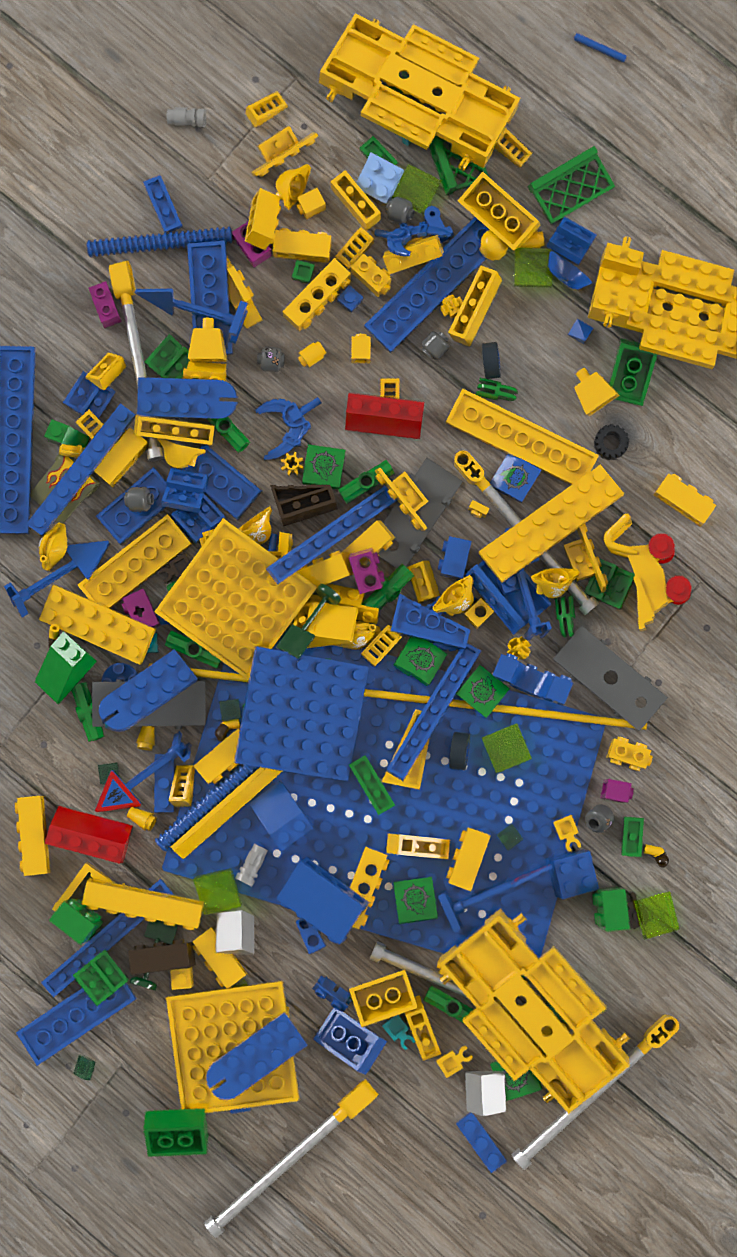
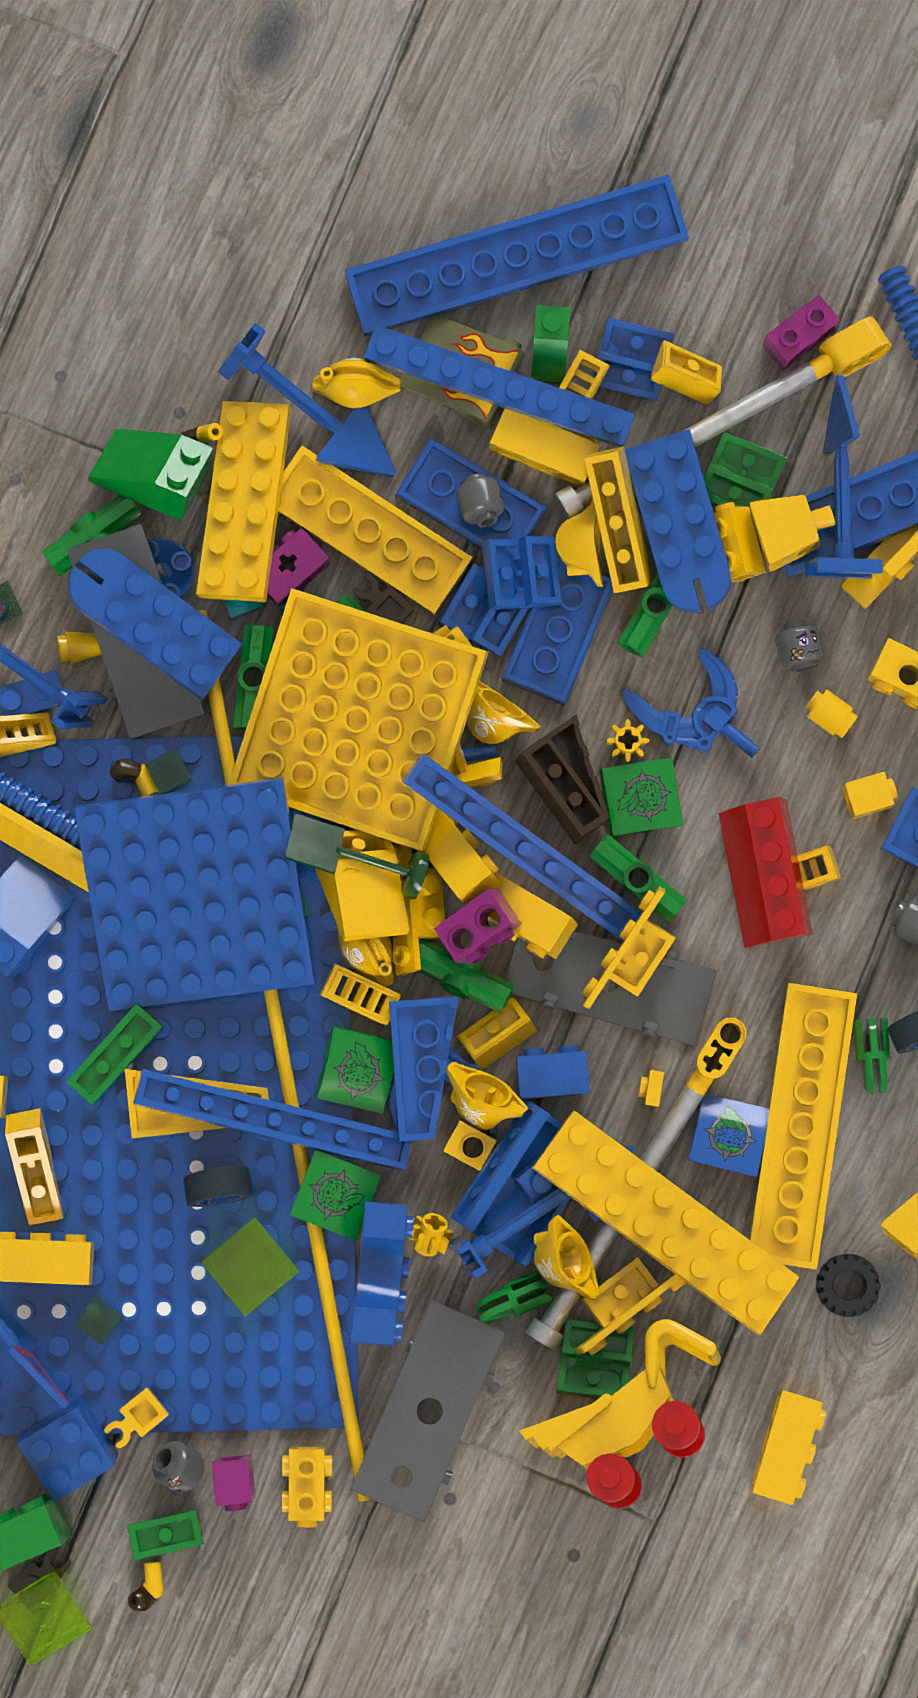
camera: 70 degrees right, 0 degrees up
(71, 451) = (527, 359): yellow axle -> none
(219, 759) = (75, 779): yellow brick -> none

